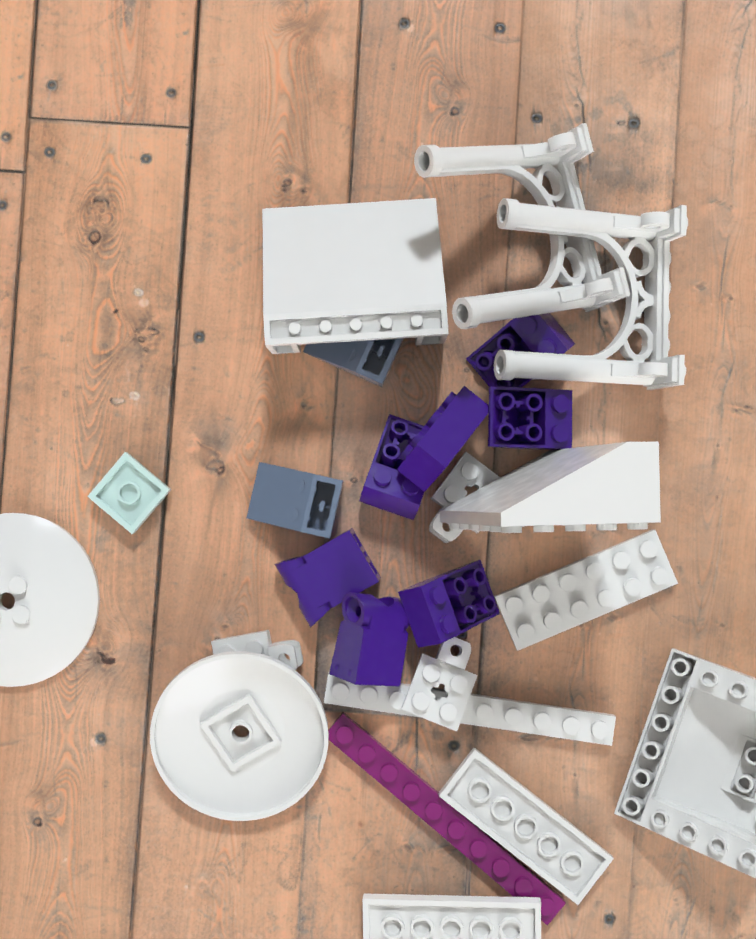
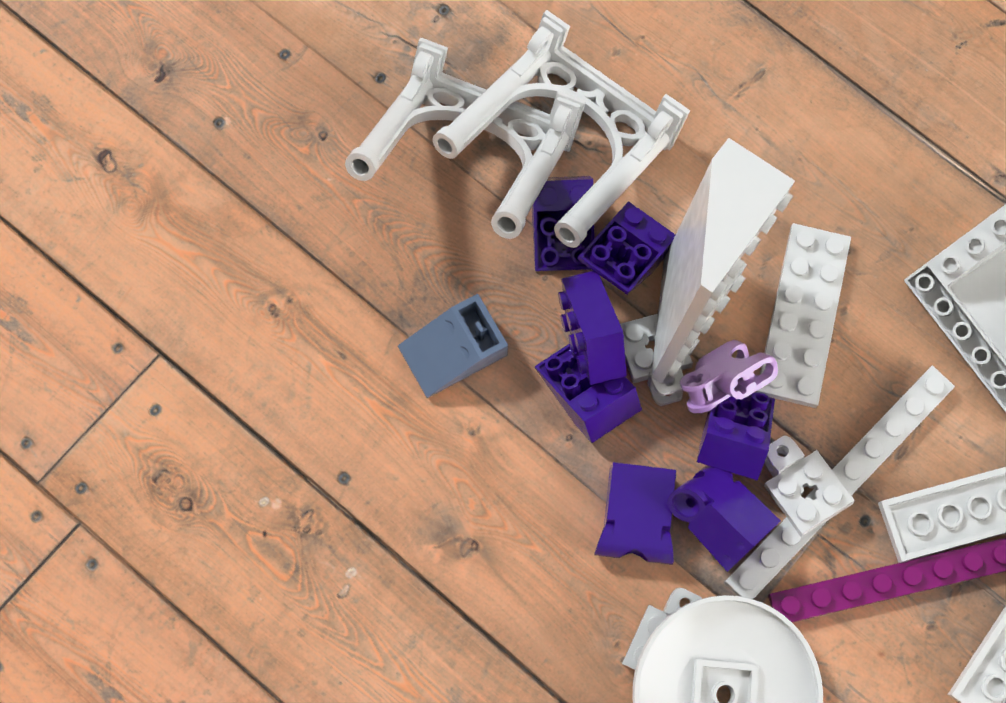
camera: 60 degrees left, 15 degrees down
(129, 493) = (435, 638): light aqua plate -> none
(295, 500) = (551, 494): sand blue slope -> none
(353, 274) = (397, 305): white slope -> none
(484, 567) = (722, 376): none -> lavender piece

